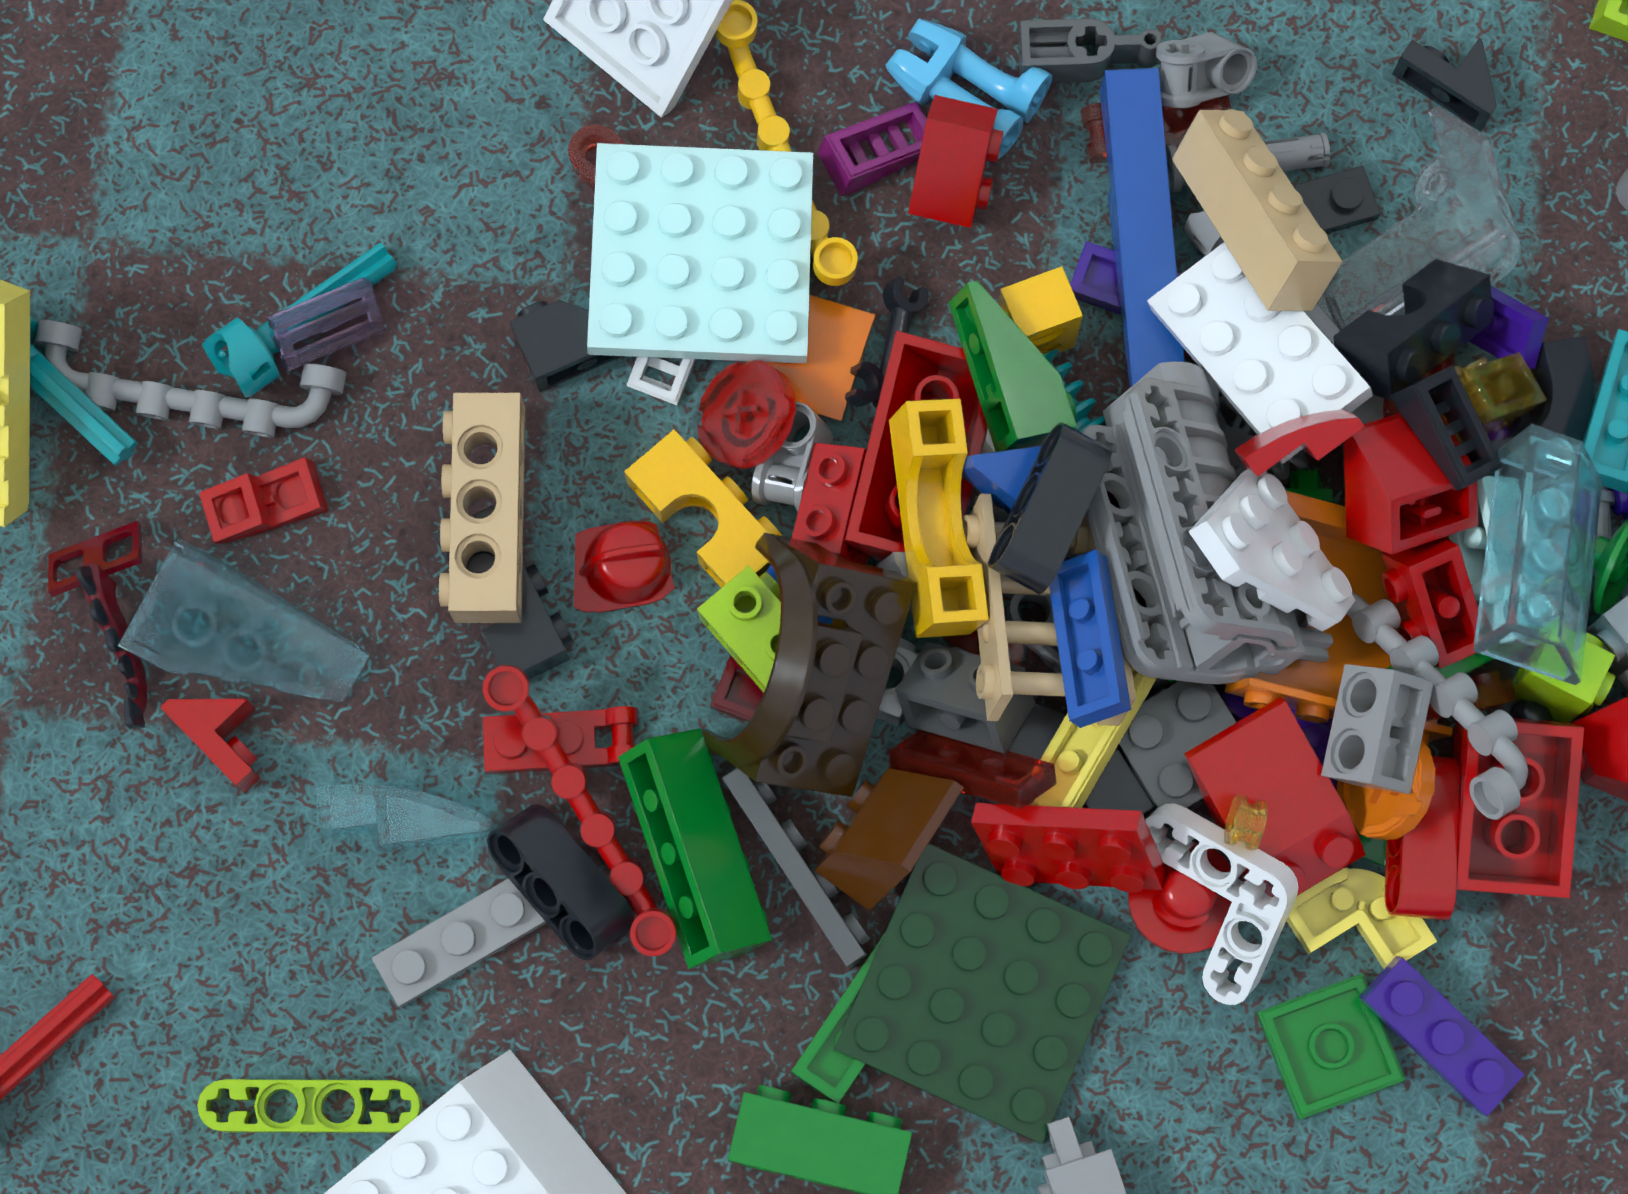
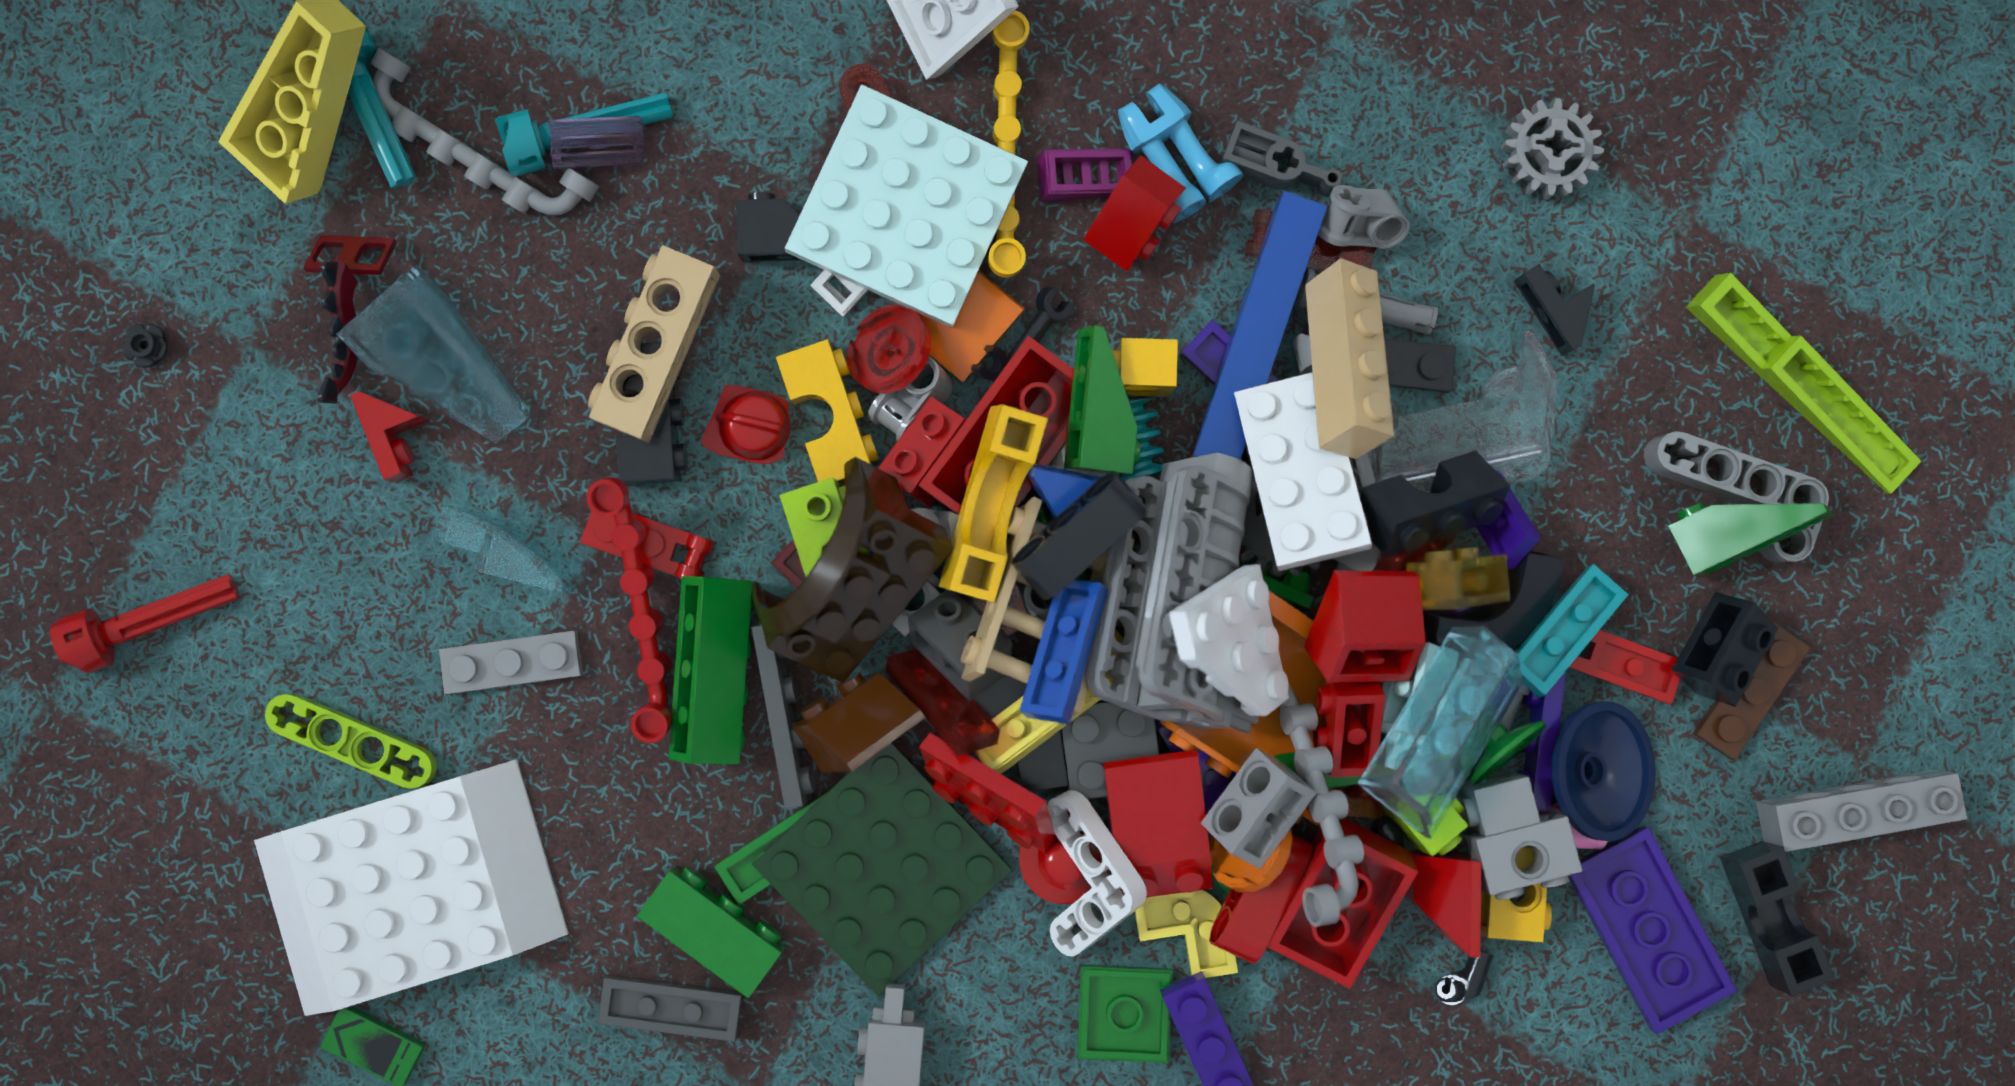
camera: 20 degrees right, 10 degrees up
(263, 502) = (497, 262): red slope -> none
(560, 881) = (600, 652): black beam -> none
(1246, 822) = (1125, 837): clear yellow bush -> none
(1315, 432) = (1312, 563): red slope -> none
(1424, 418) = (1401, 586): black slope -> none

